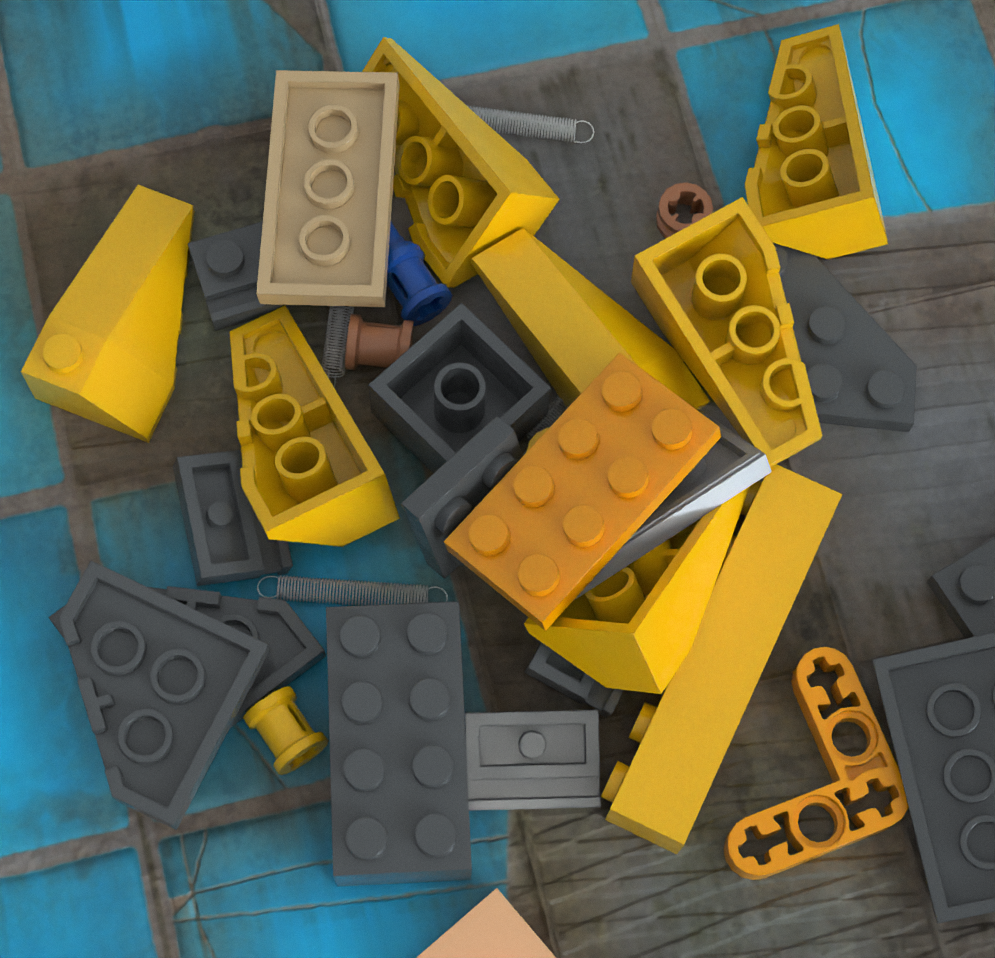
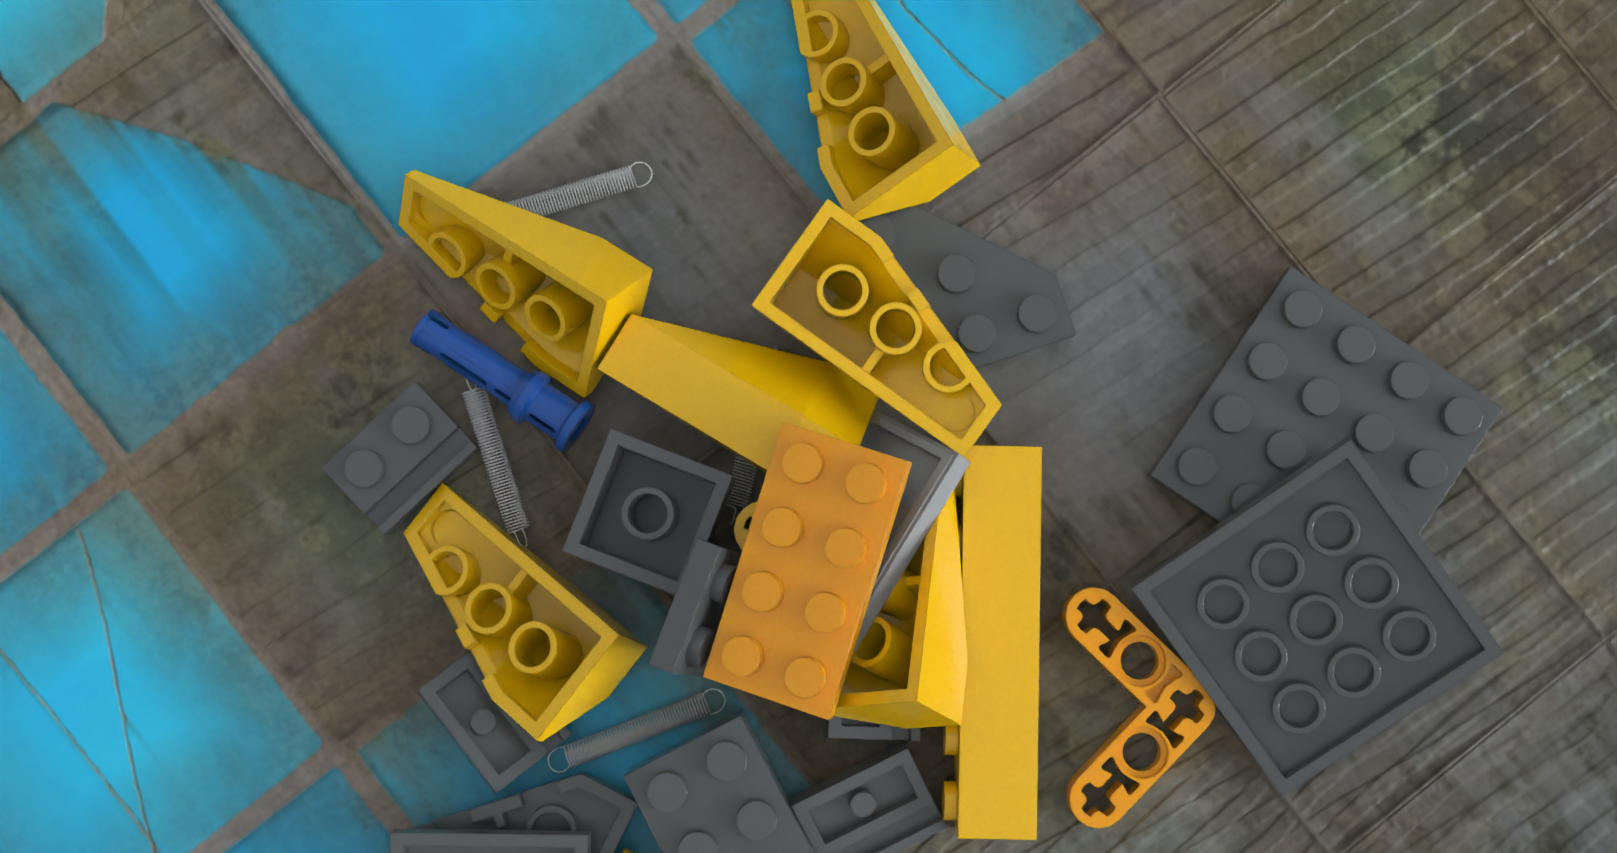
camera: 20 degrees left, 15 degrees up
(119, 322) = (297, 576): yellow wedge -> none
(329, 189) = (429, 361): tan plate -> none
(376, 342) = (548, 486): nougat bush -> none
(681, 194) = (755, 211): nougat bush -> none

